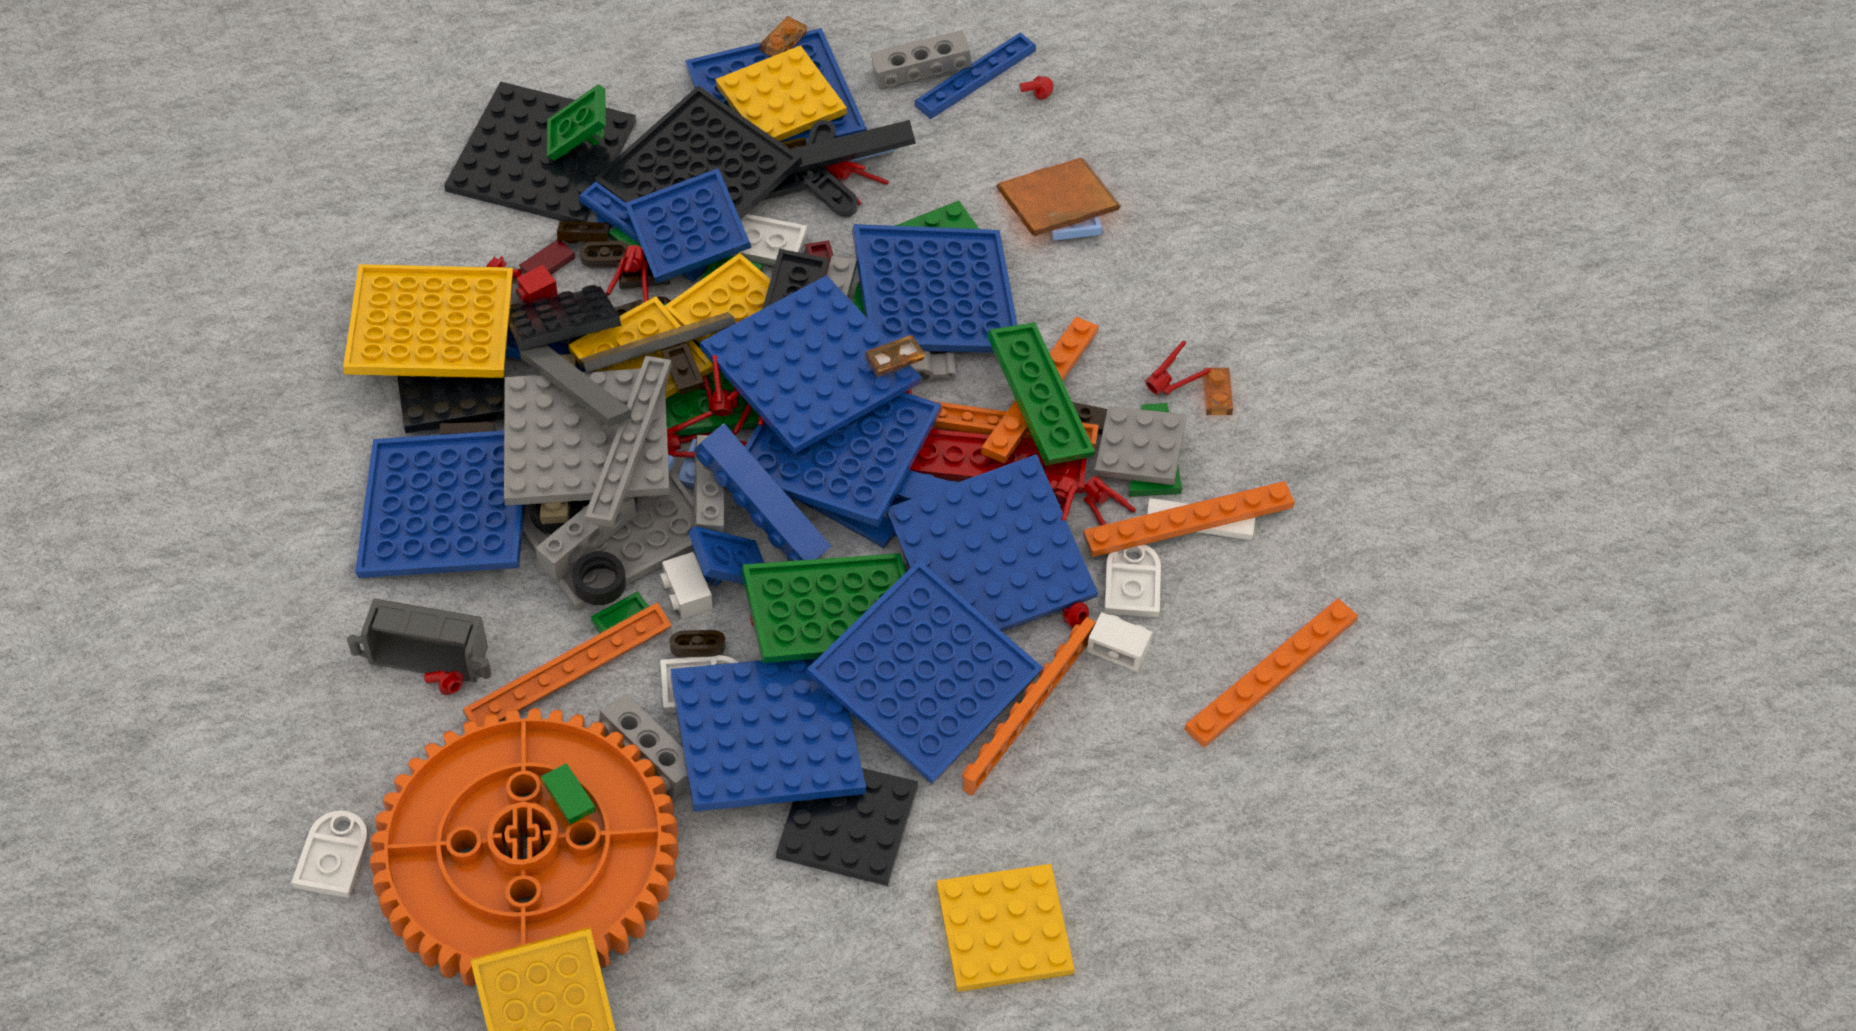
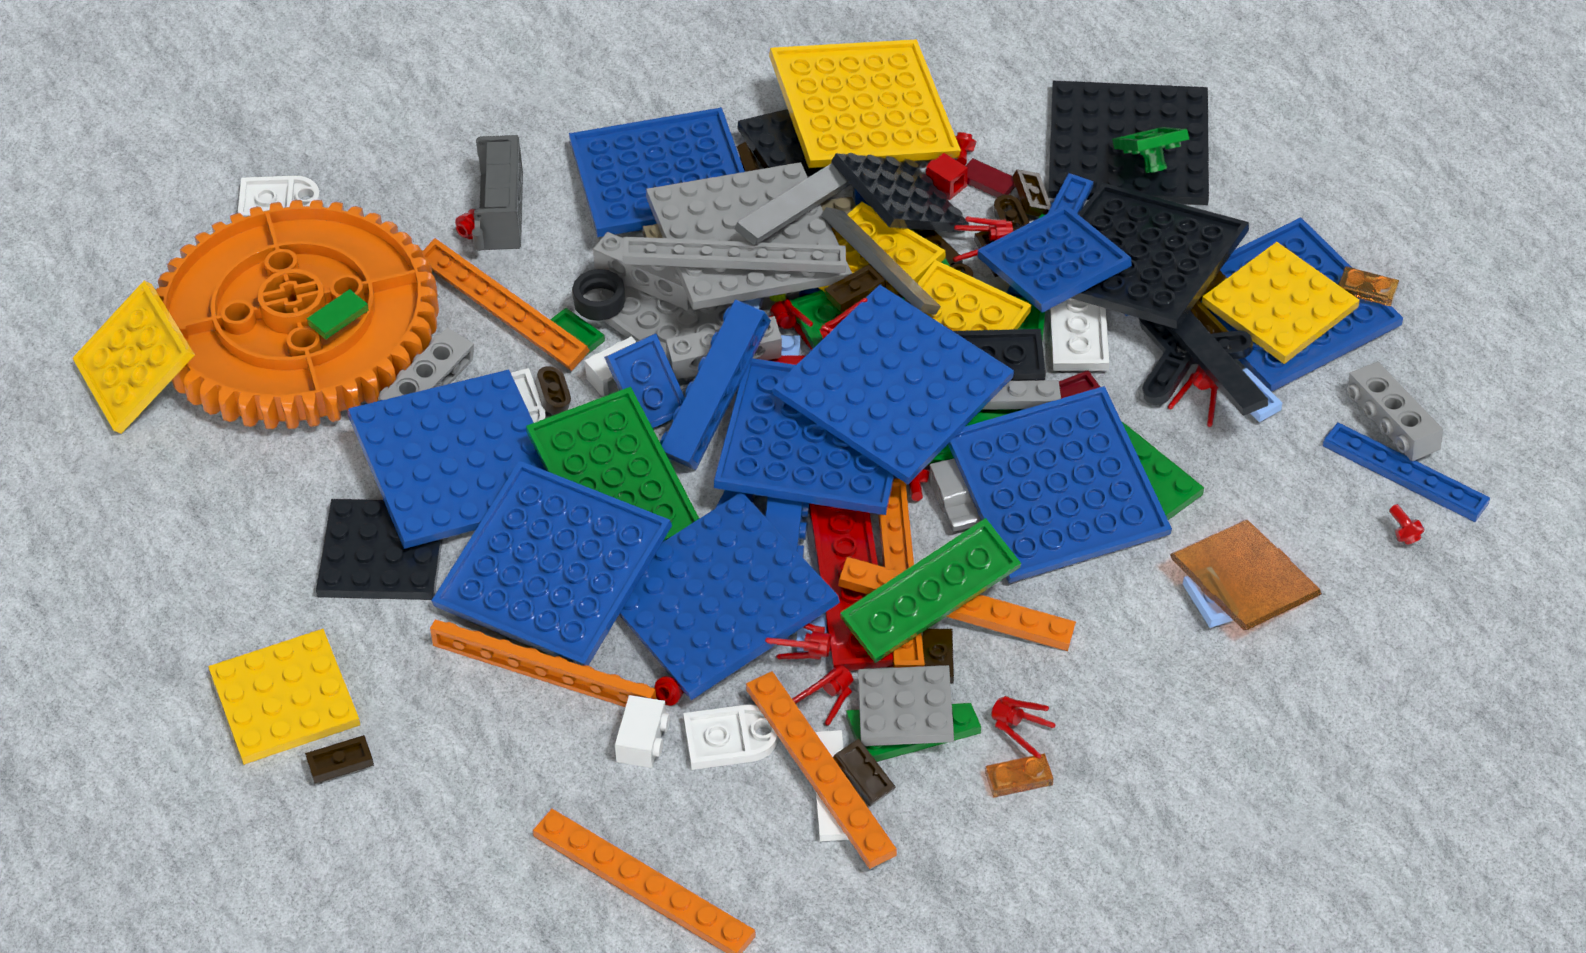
camera: 80 degrees right, 5 degrees down
(894, 355) = (915, 440): clear orange piece -> none
(1094, 886) = (339, 759): none -> dark brown plate
(1197, 489) = (864, 772): none -> dark brown plate

